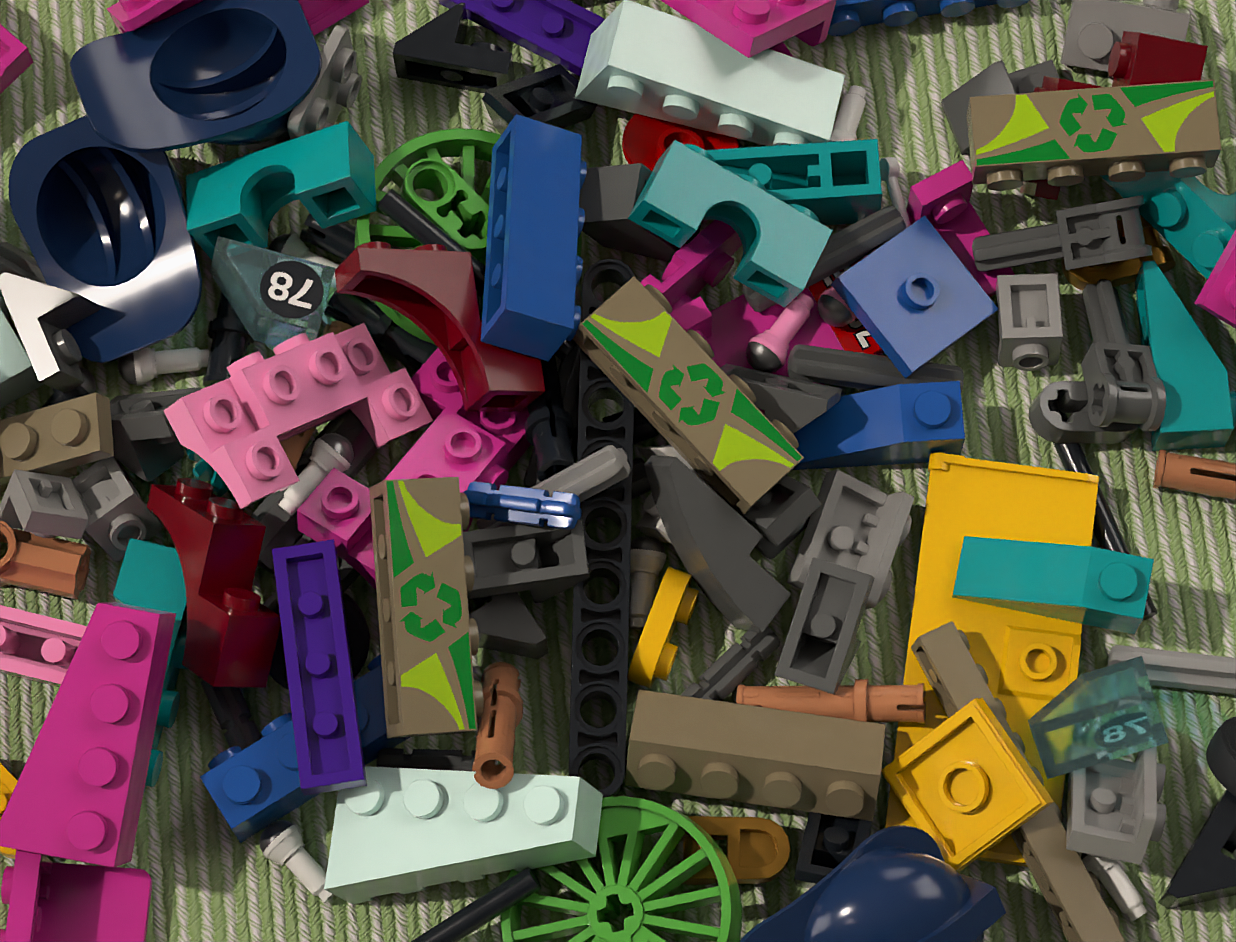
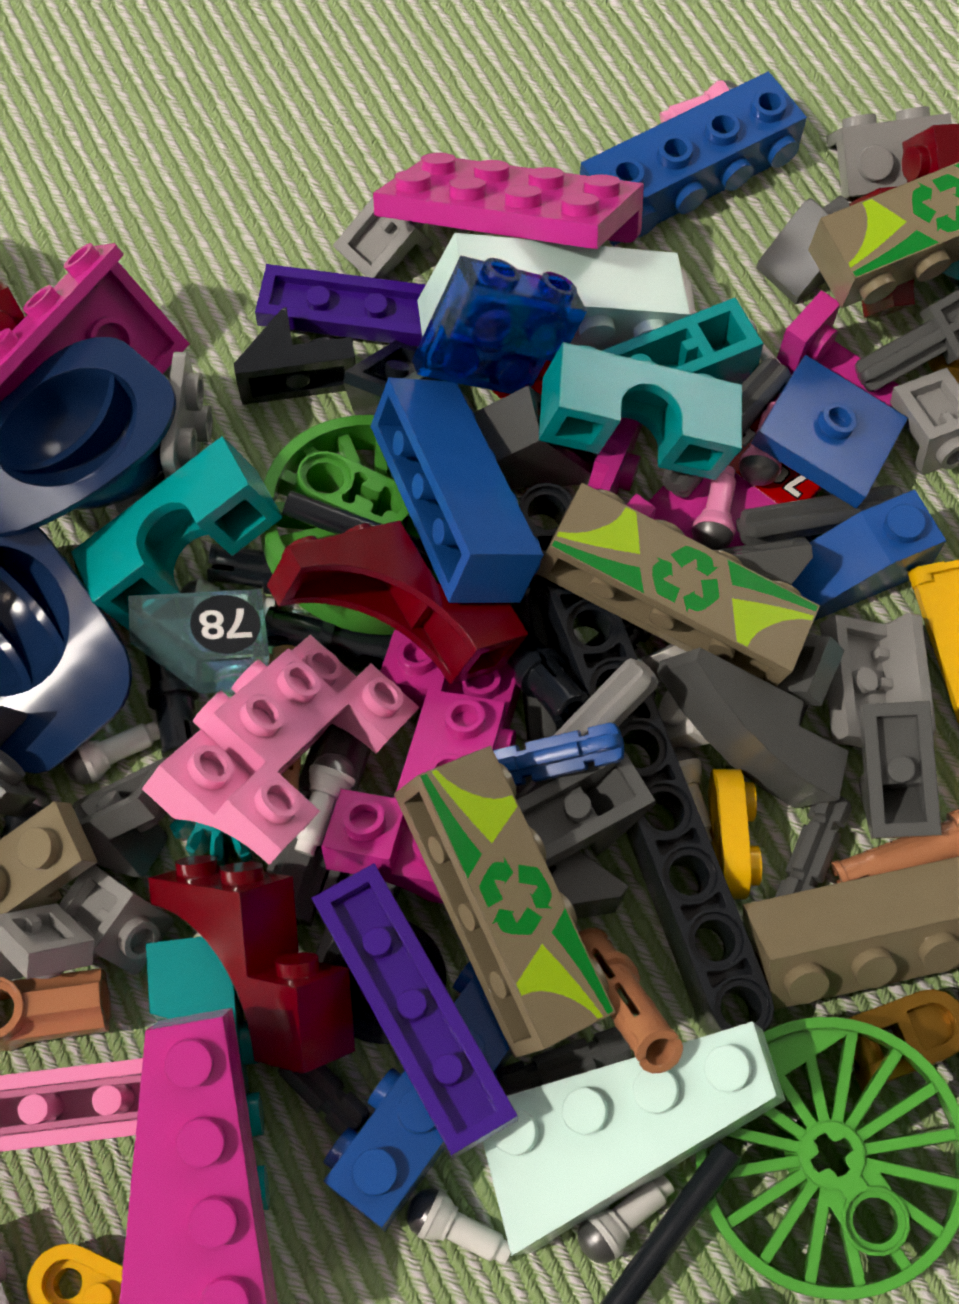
camera: 25 degrees left, 5 degrees down
(415, 909) = (606, 1233): none -> white piece
(630, 101) = (498, 325): none -> clear blue plate

